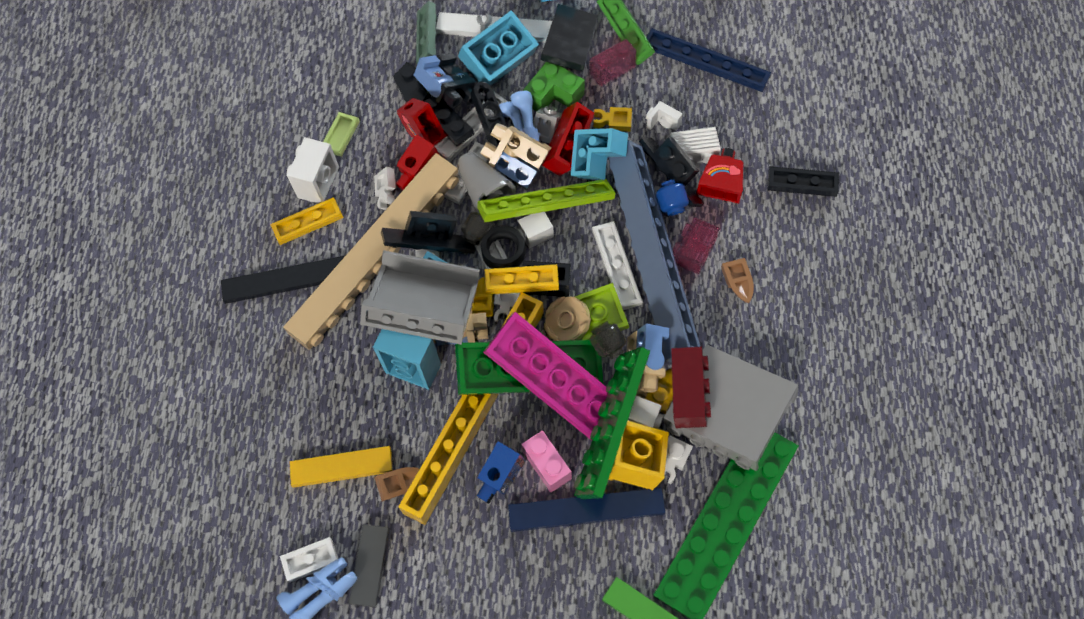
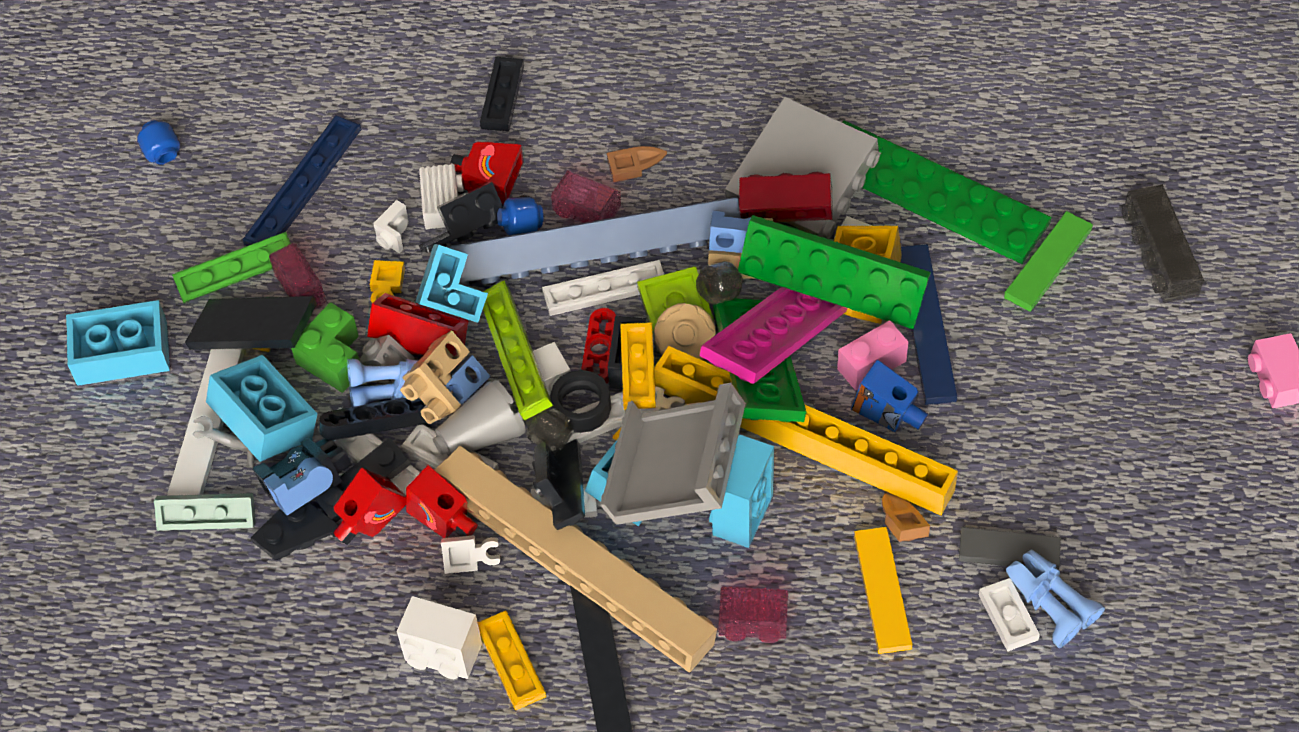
camera: 90 degrees left, 10 degrees down
(323, 372) = (753, 614): none -> clear pink brick
(341, 132) = (364, 625): yellowish green tile -> none
(576, 257) = (595, 337): none -> red beam

